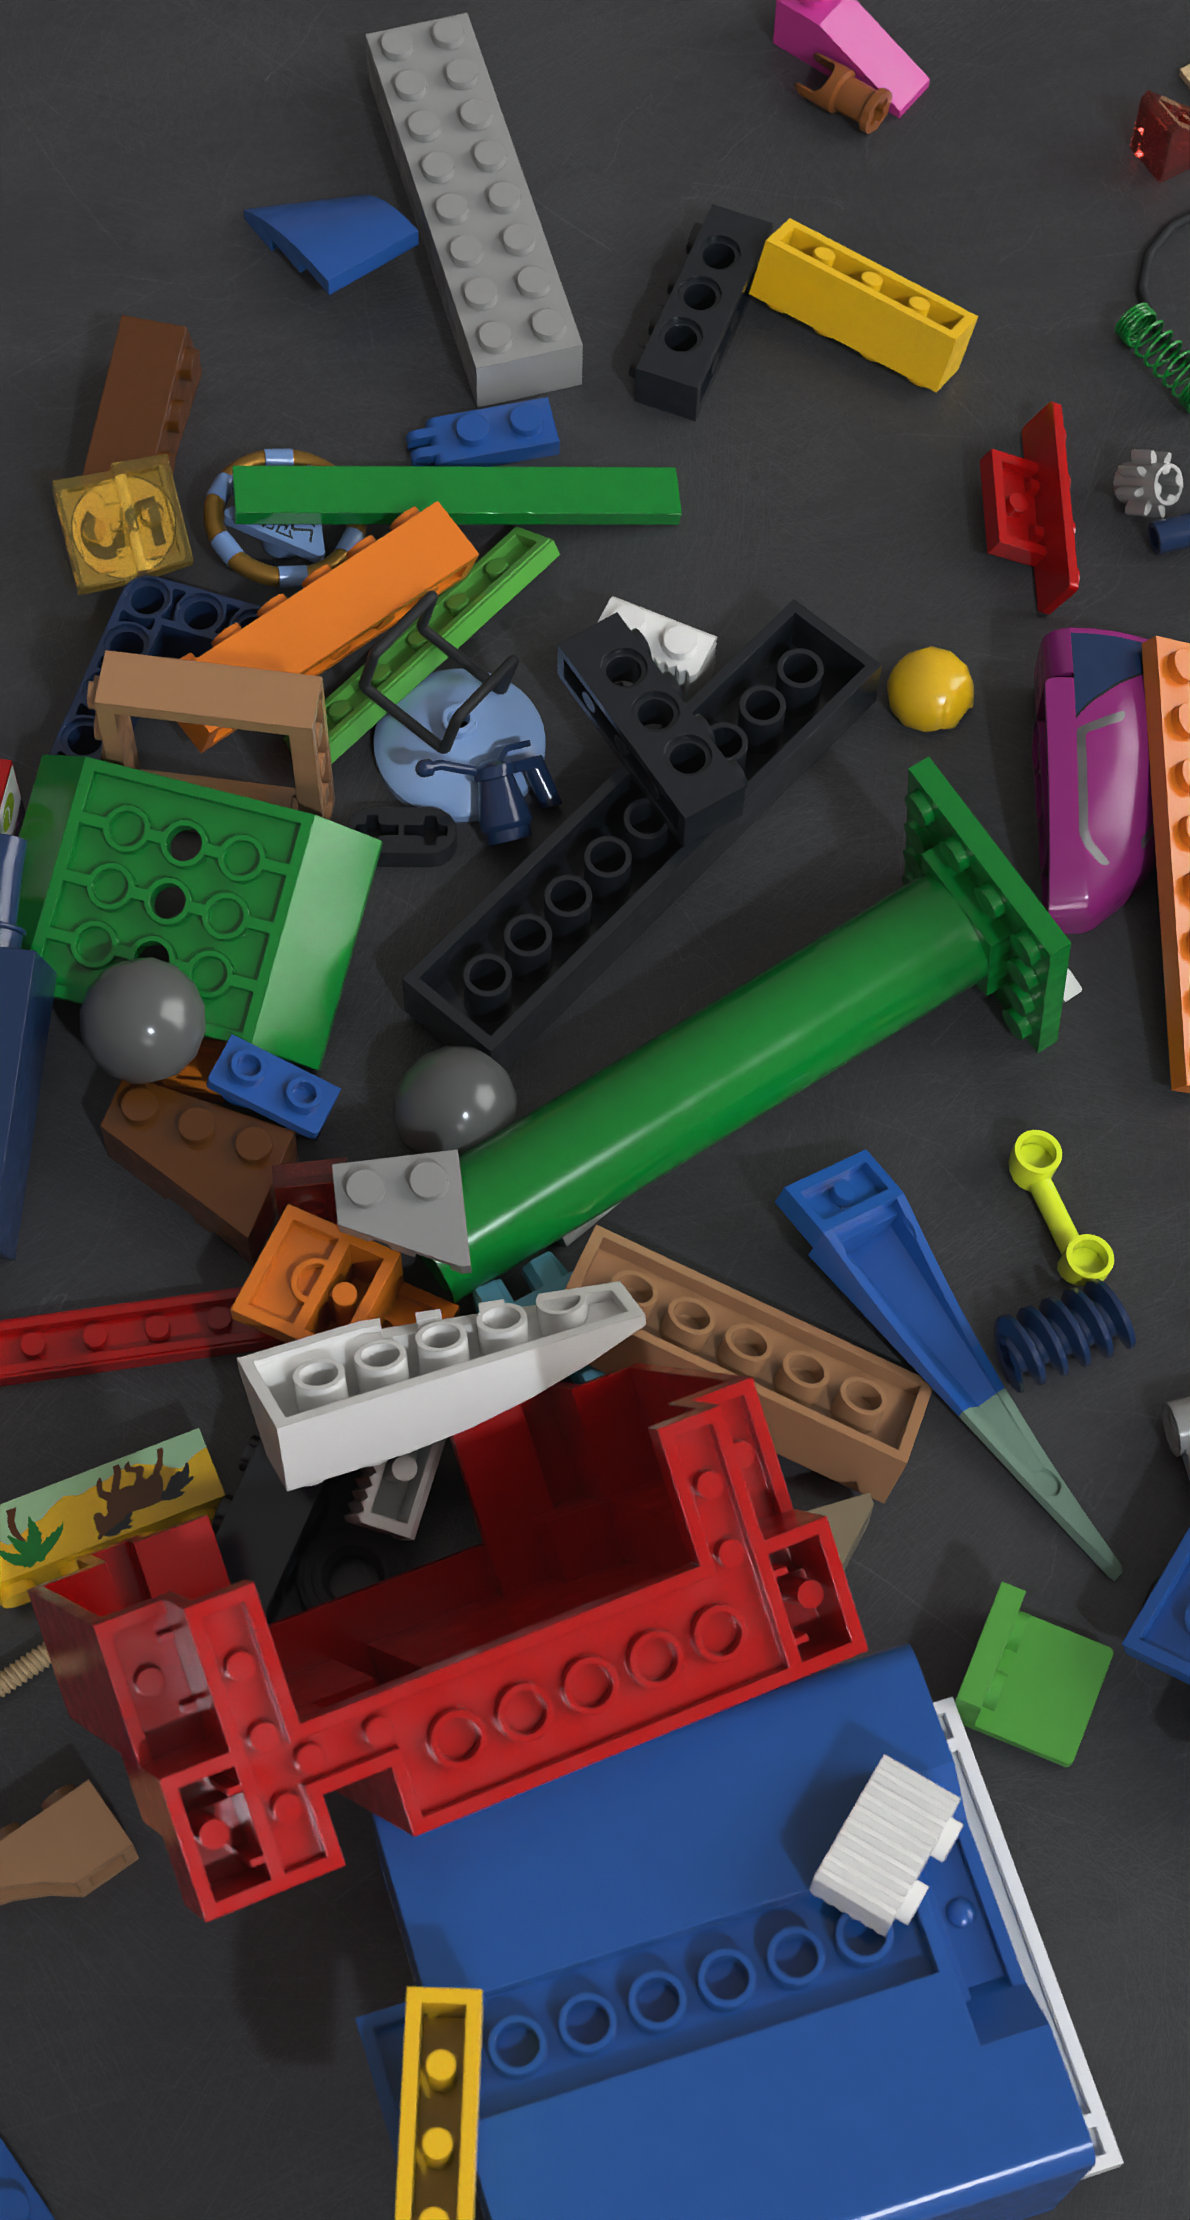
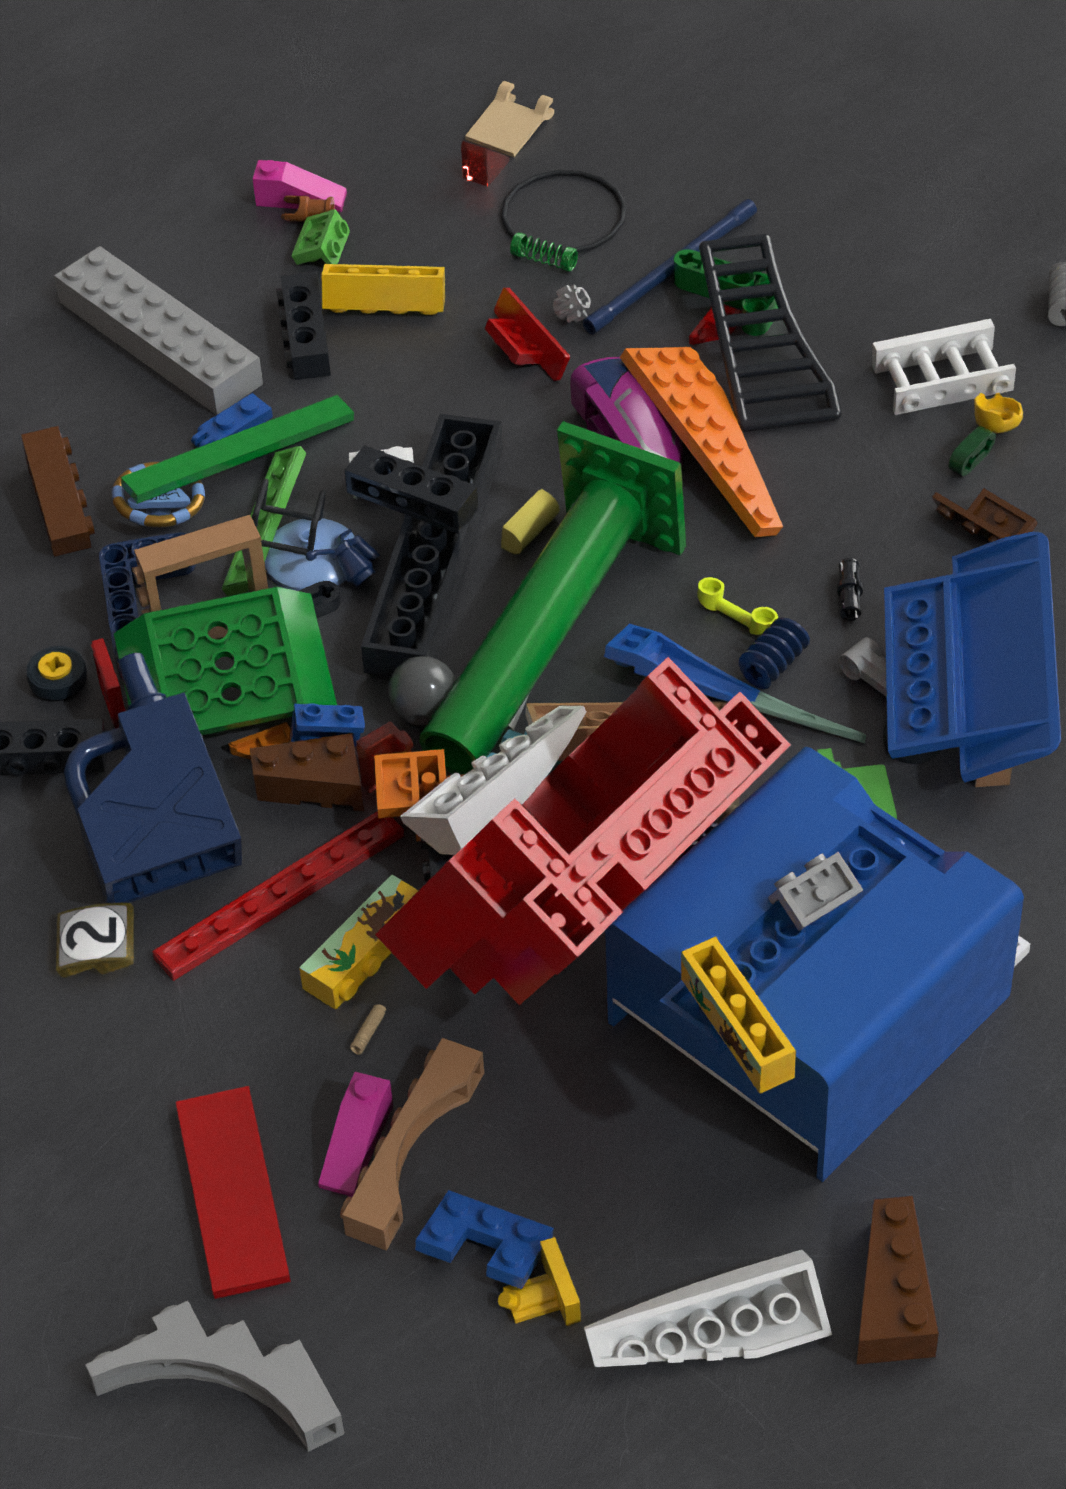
camera: 25 degrees left, 15 degrees down
(122, 524) = (80, 526): clear yellow slope -> none
(142, 1020) = (248, 713): dark grey piece -> none
(335, 236) = (99, 369): blue slope -> none
(344, 604) = (226, 499): orange brick -> none
(408, 1204) = (435, 723): light grey wing -> none
(733, 1963) = (817, 890): none -> light grey bracket
(826, 868) = (529, 521): none -> light yellow brick
(829, 161) = (321, 237): none -> bright green bracket
(886, 1845) = (851, 815): white brick -> none
(930, 690) = (526, 431): yellow hair -> none

